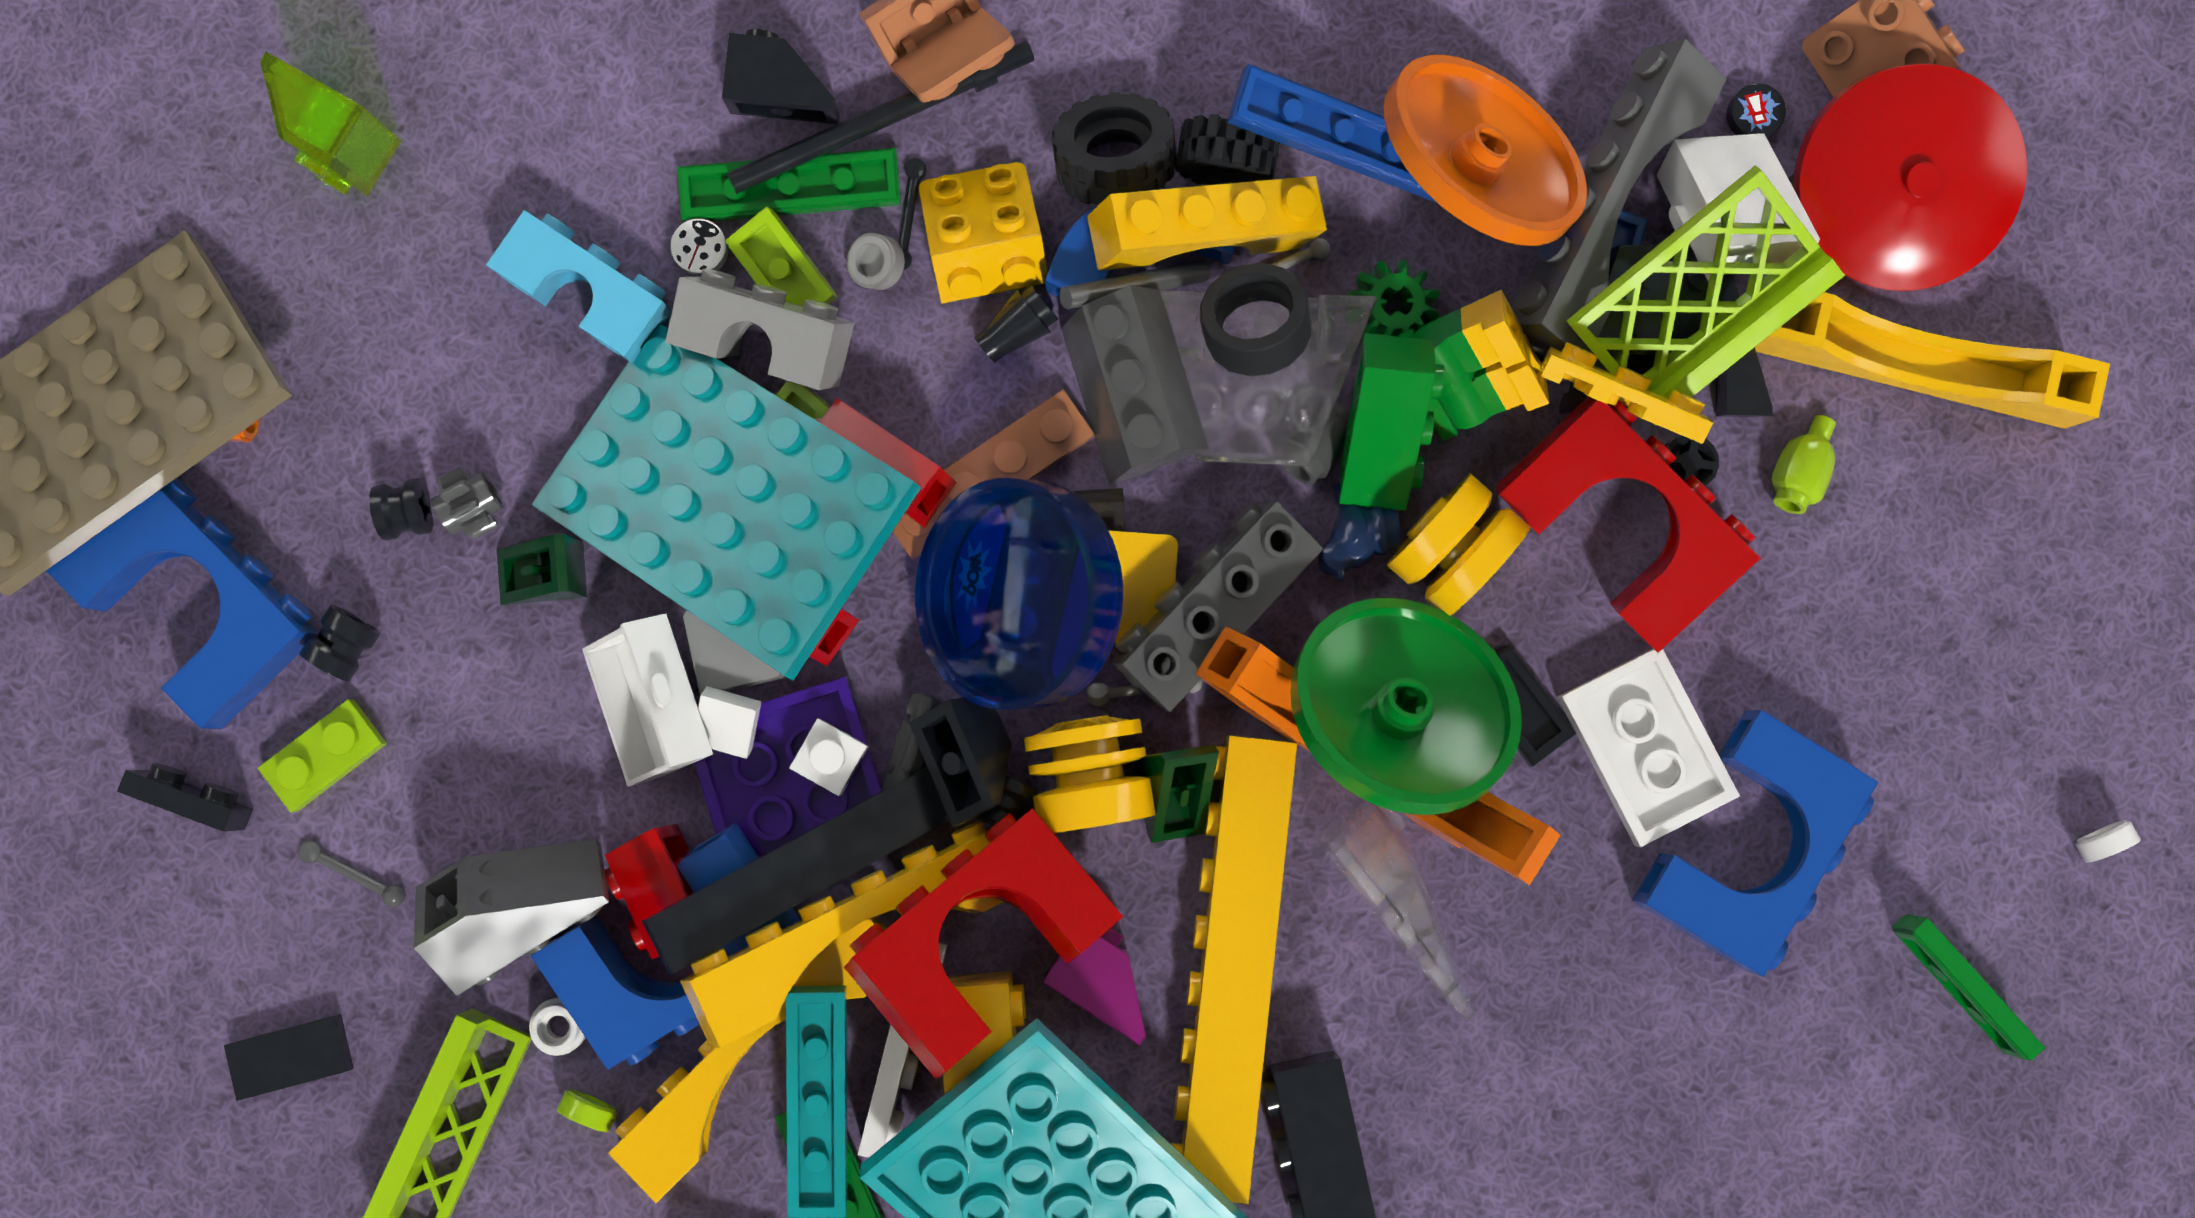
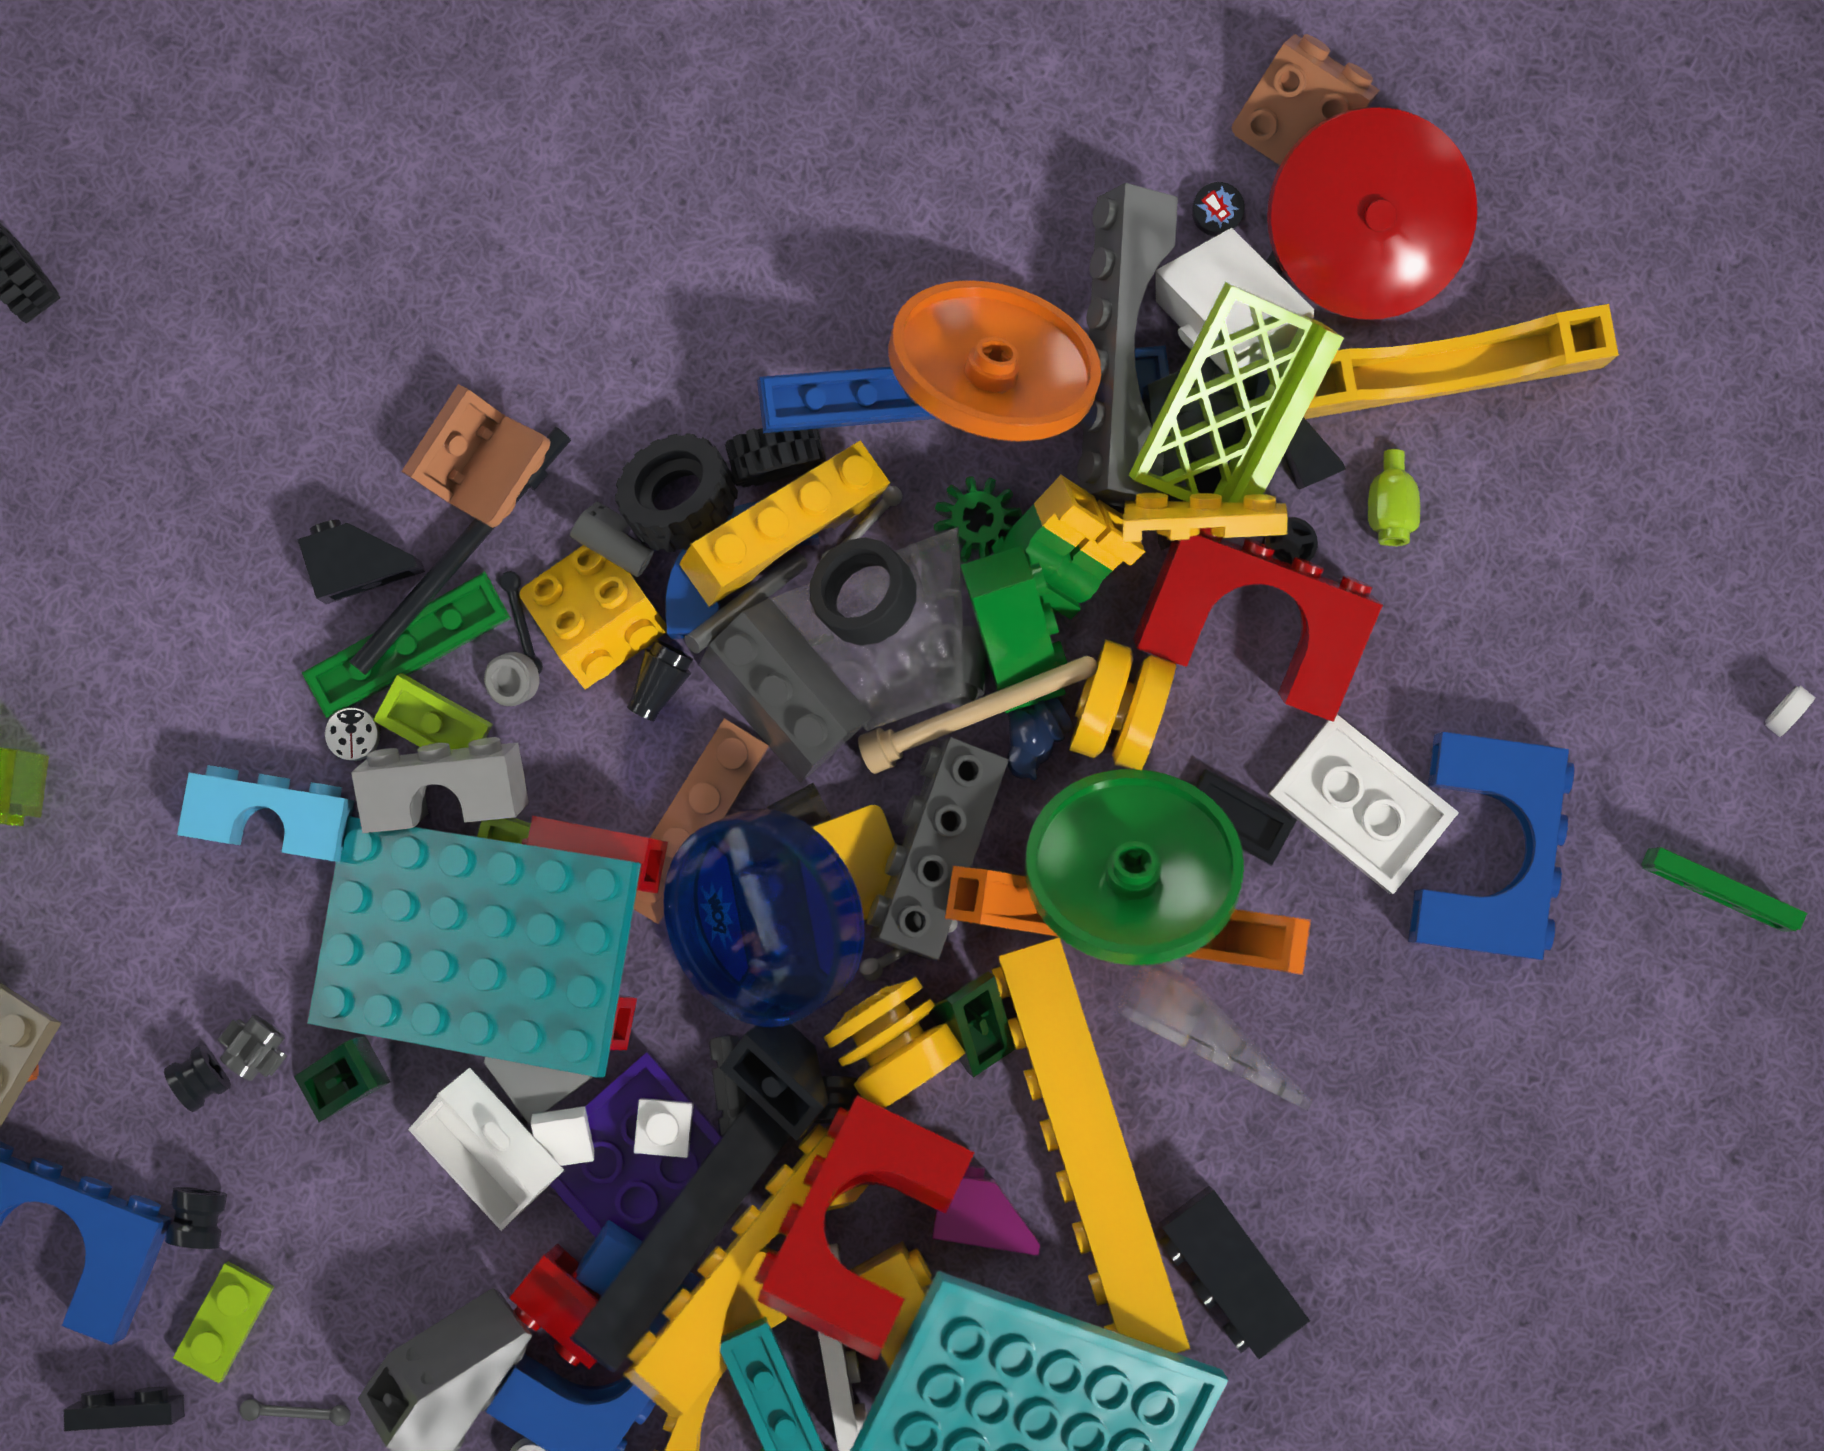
camera: 15 degrees left, 0 degrees up
(1031, 166) = (608, 536): none -> dark grey piece
(1206, 485) = (883, 748): none -> tan piece

